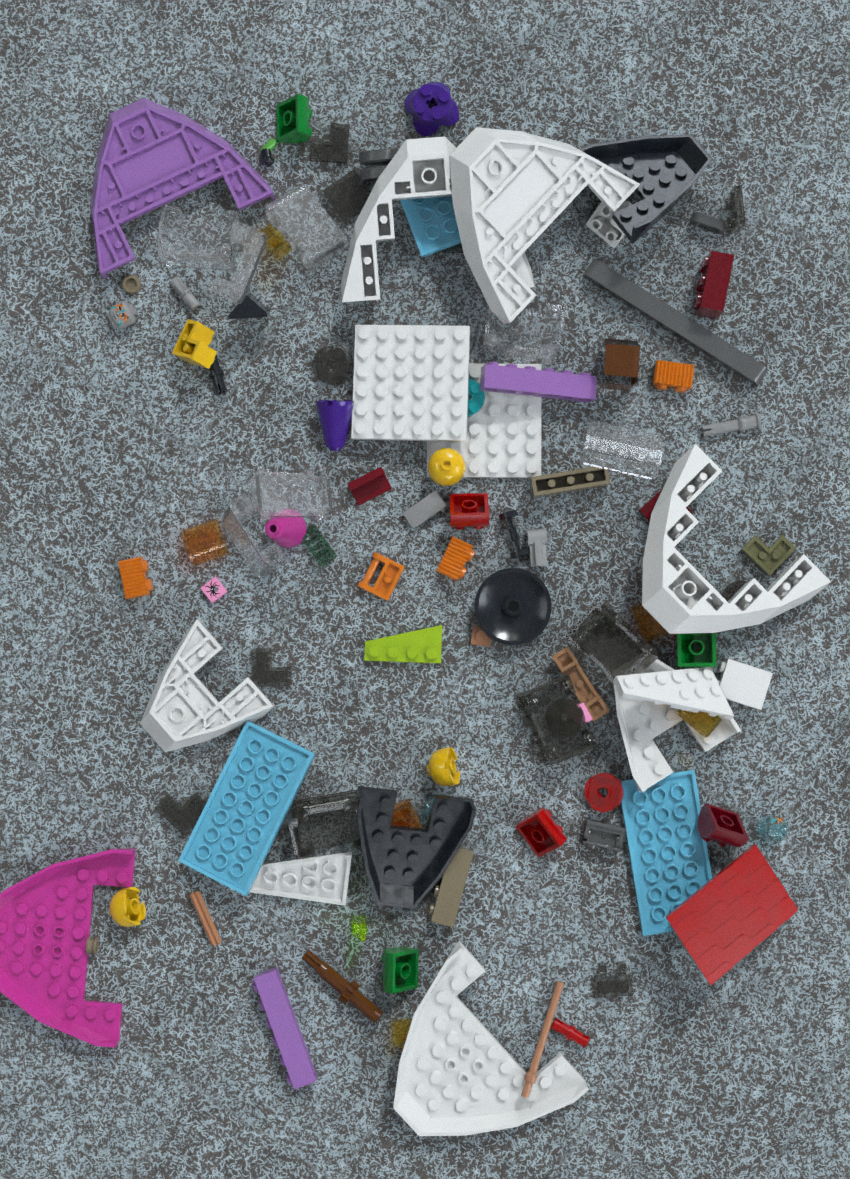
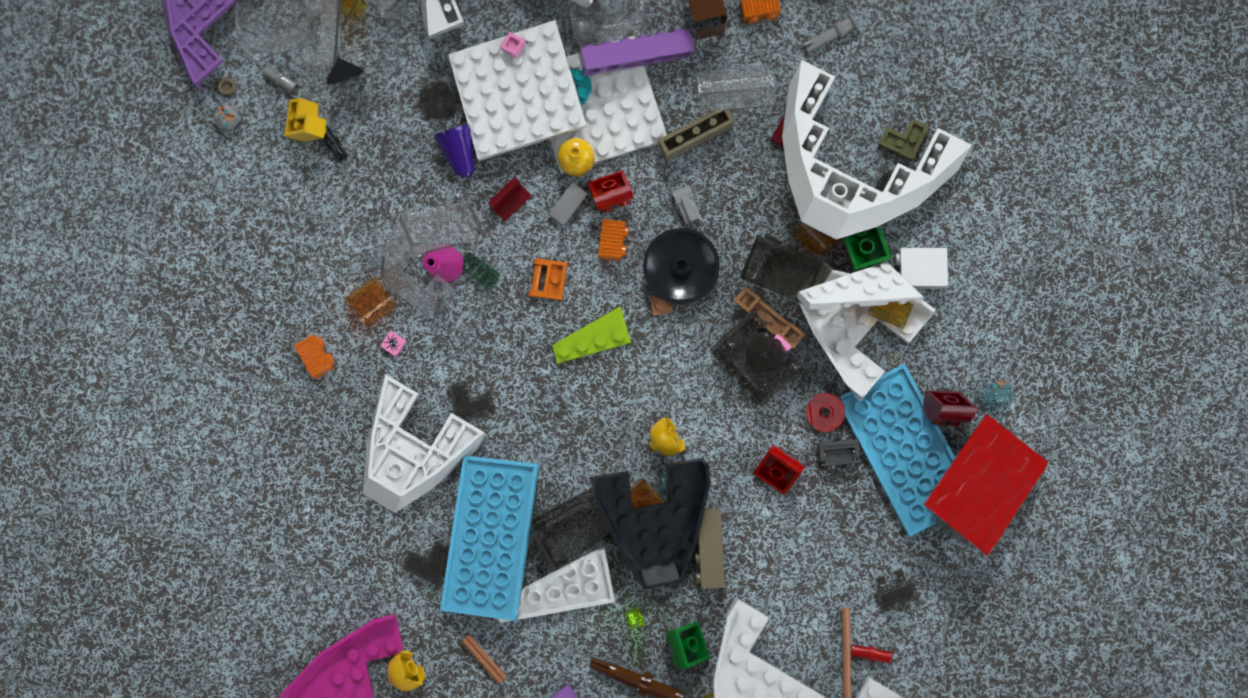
camera: 10 degrees left, 5 degrees down
(421, 337) = (513, 45): none -> bright pink tile
(513, 533) = (648, 184): black wheel -> none

